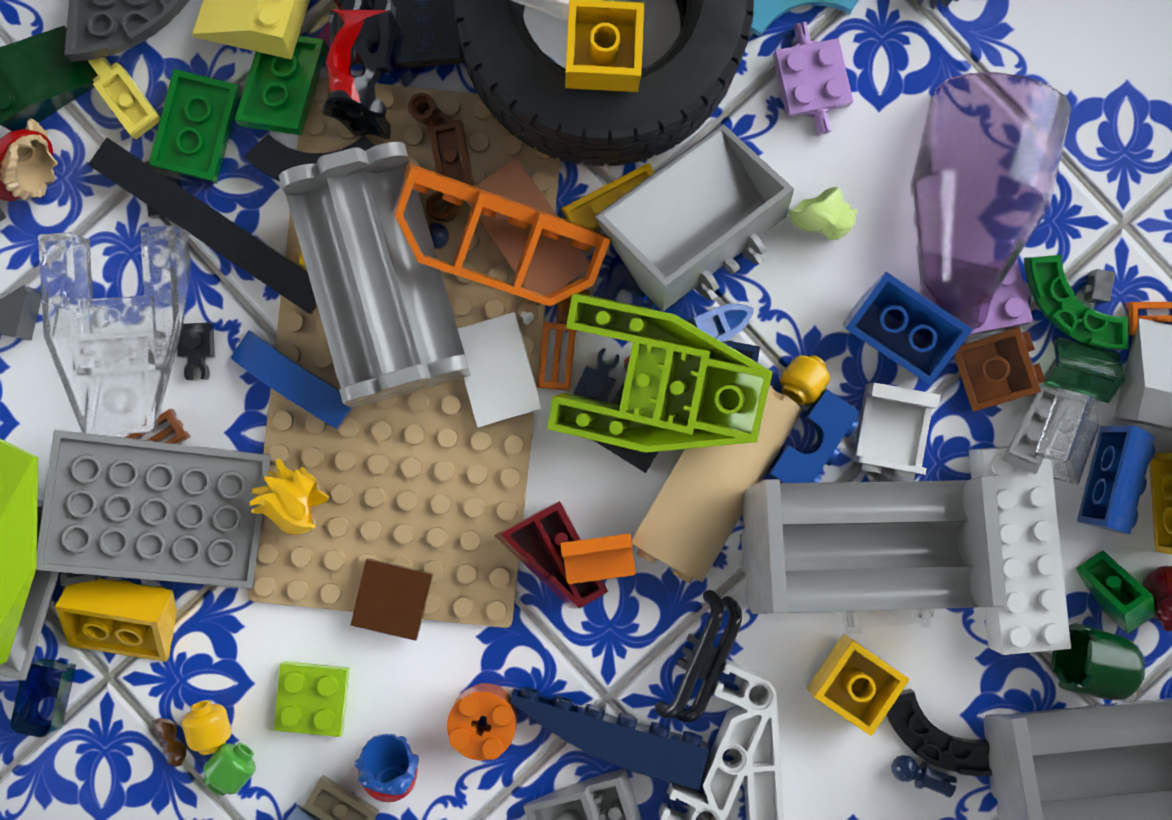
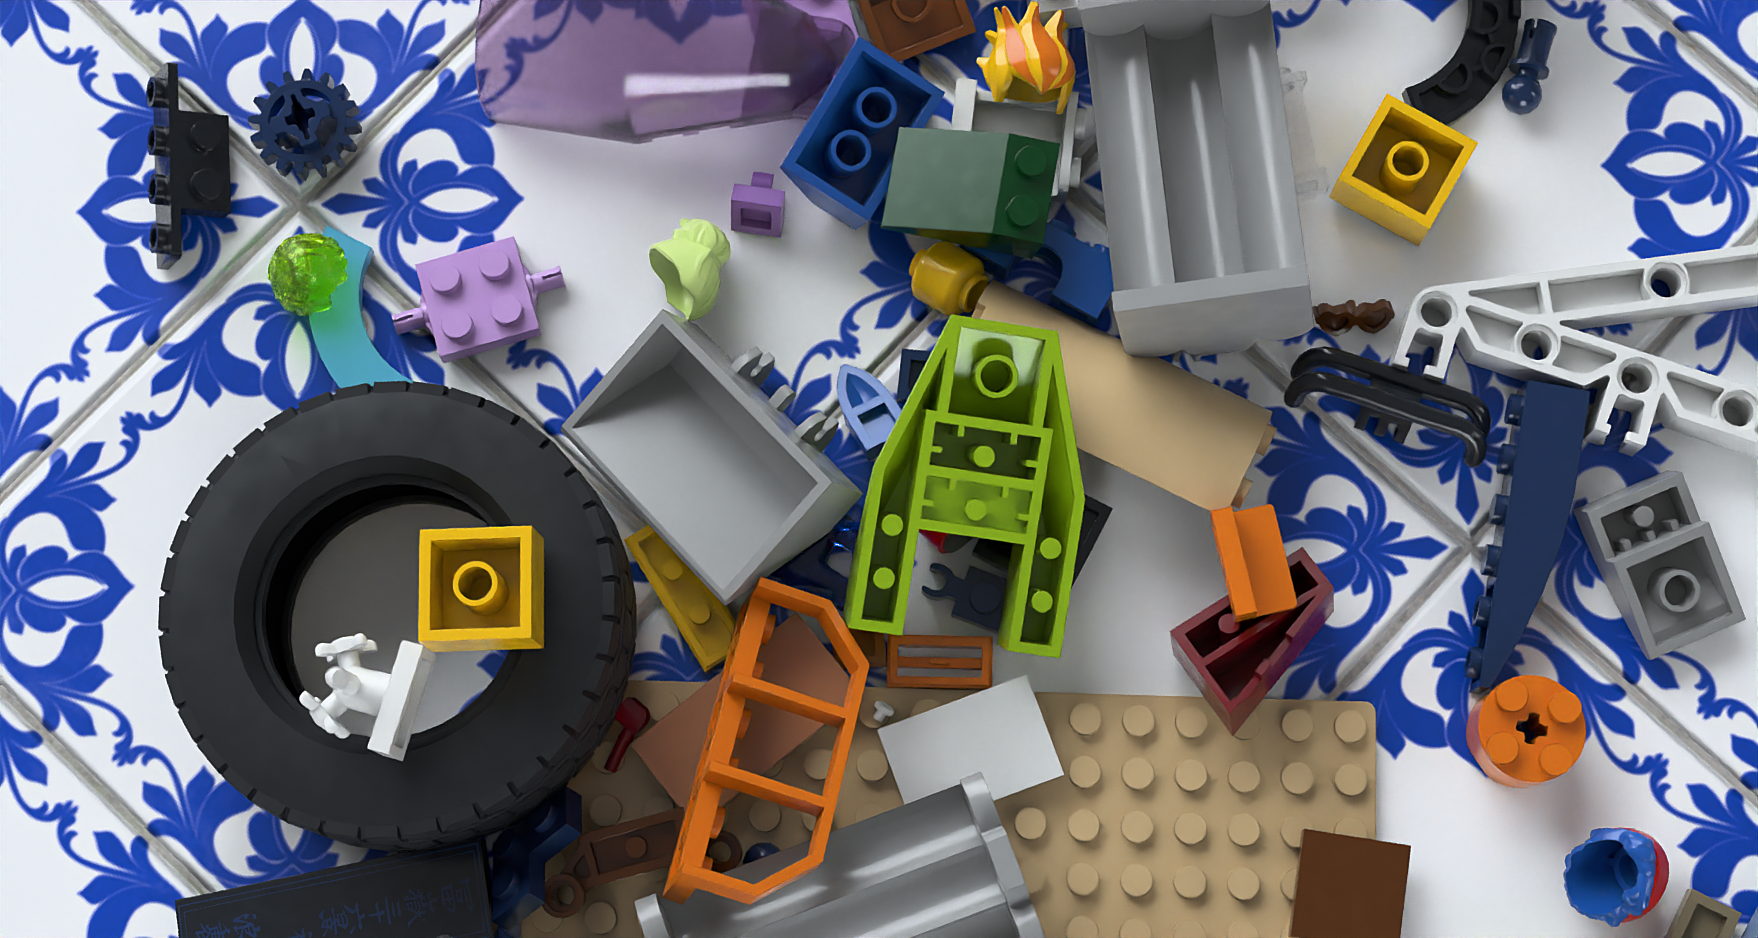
camera: 95 degrees left, 10 degrees down
(452, 86) = (522, 855): none -> dark blue plate
(534, 160) = (634, 718): none -> dark red hand
(761, 634) = (1342, 317): none -> reddish brown piece
(862, 260) = (758, 206): none -> medium lavender tile
(862, 396) = (971, 188): none -> dark green slope
(949, 443) = (1029, 59): none -> yellow hair

